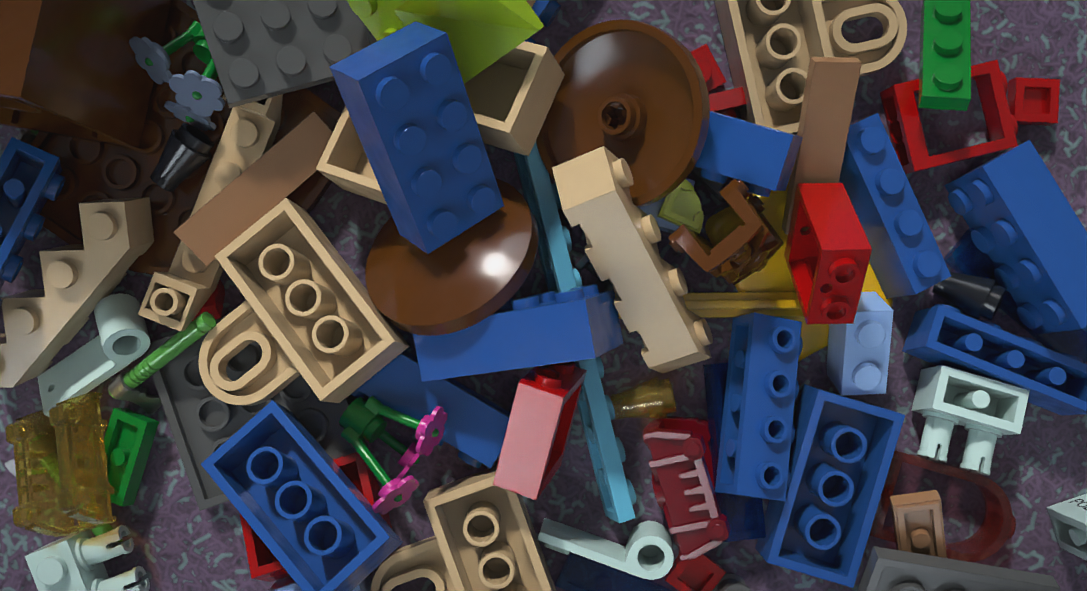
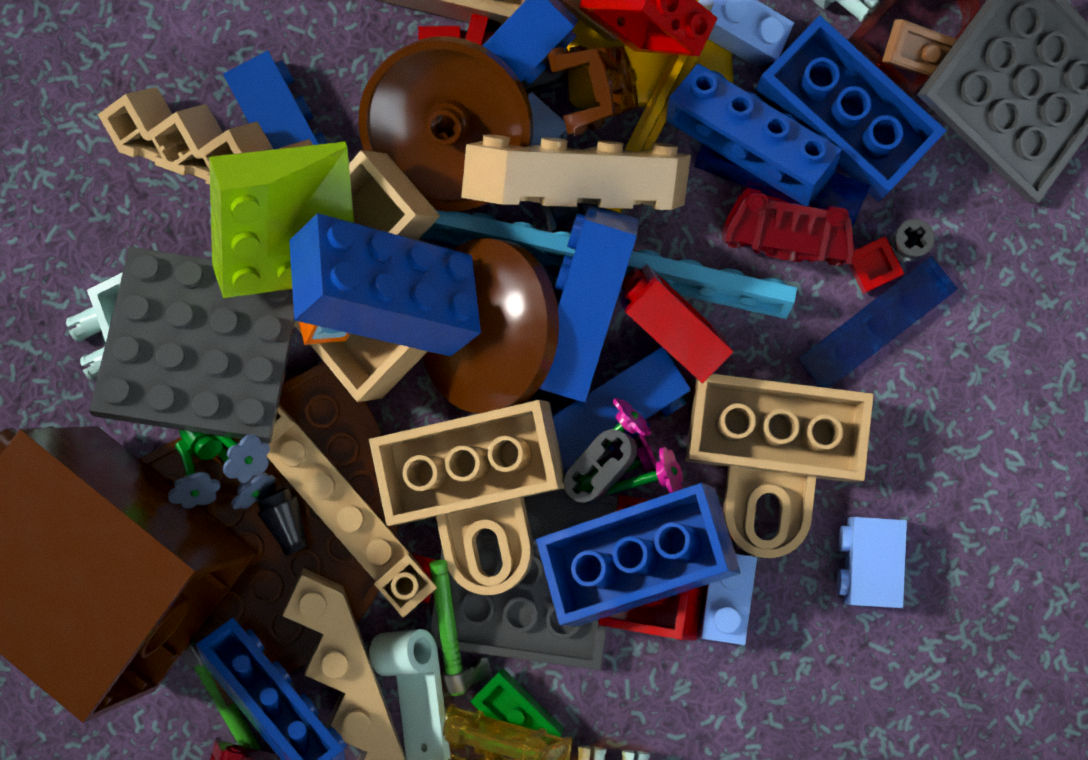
camera: 65 degrees left, 5 degrees down
(256, 190) = (347, 464): medium nougat tile -> none
(373, 415) = (608, 473): none -> dark grey beam
(646, 400) = (700, 230): clear yellow cone -> none
(646, 553) = (830, 295): light aqua door -> none
(683, 207) = (549, 112): neon yellow tile -> none

